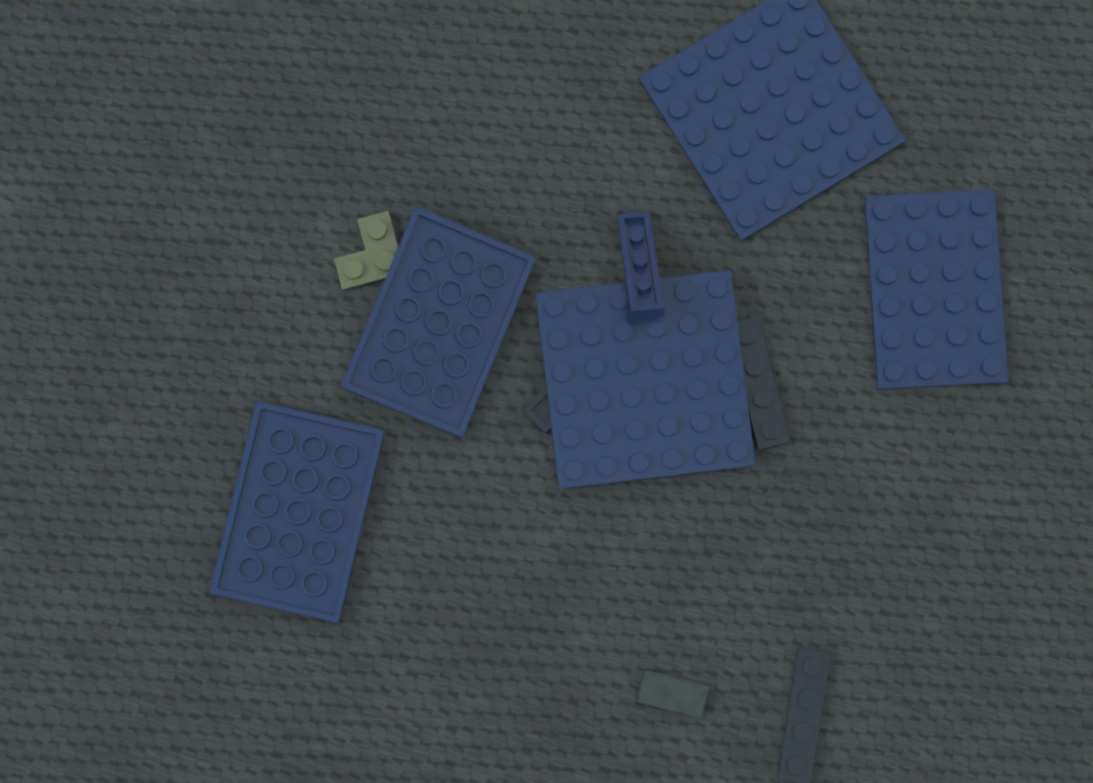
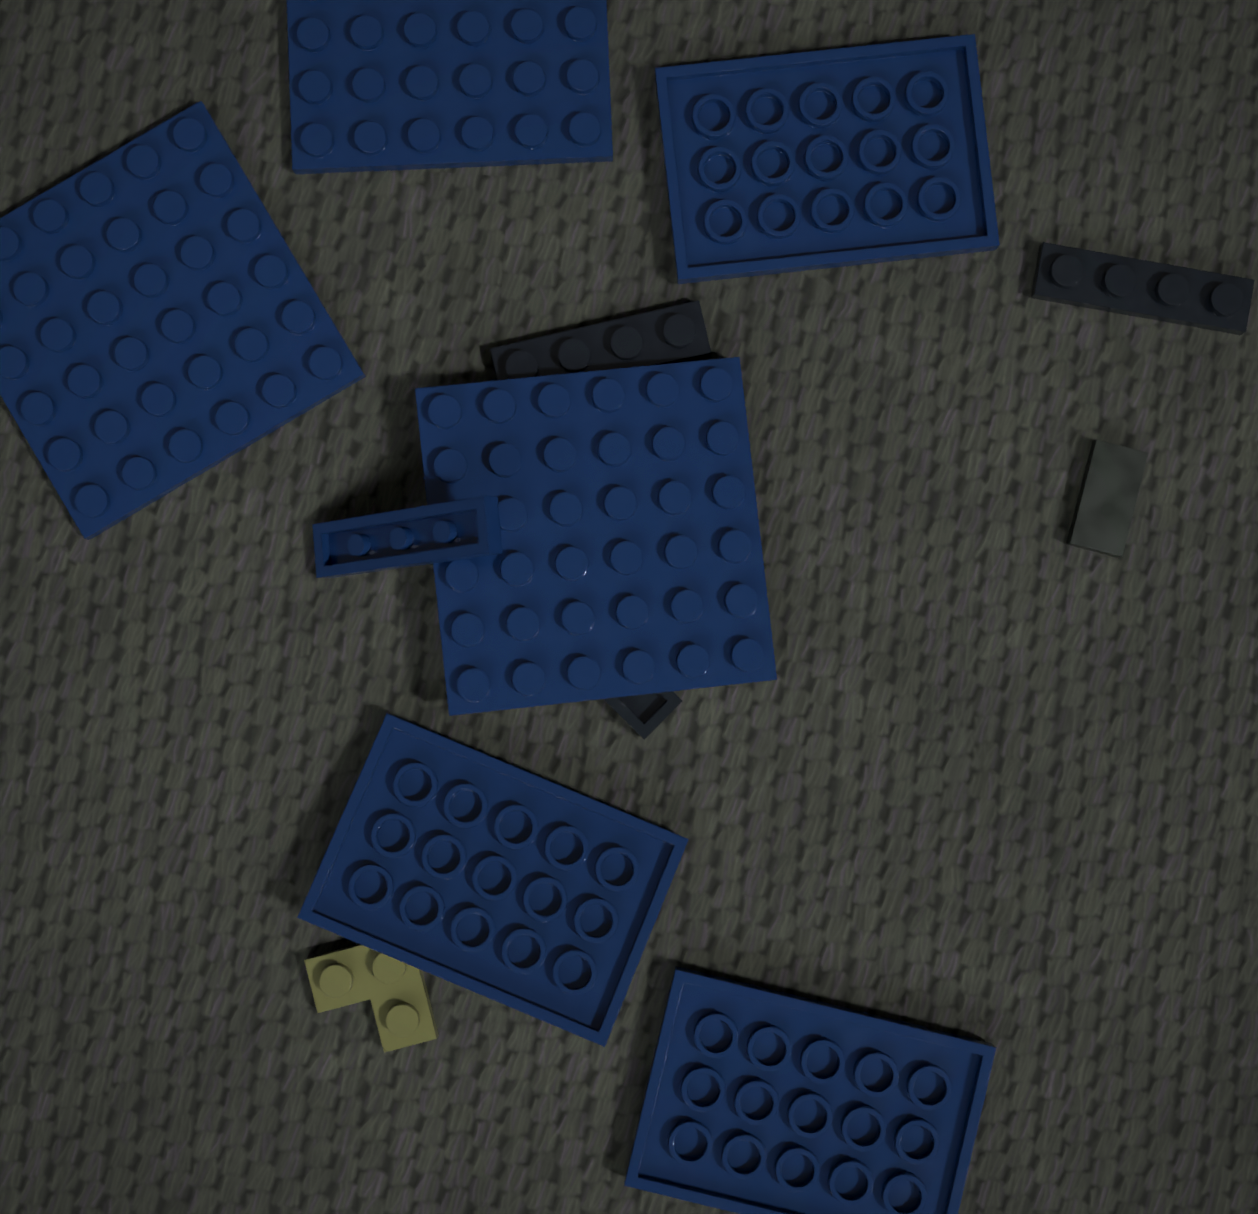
camera: 85 degrees left, 5 degrees up
(879, 519) = (826, 159): none -> dark blue plate

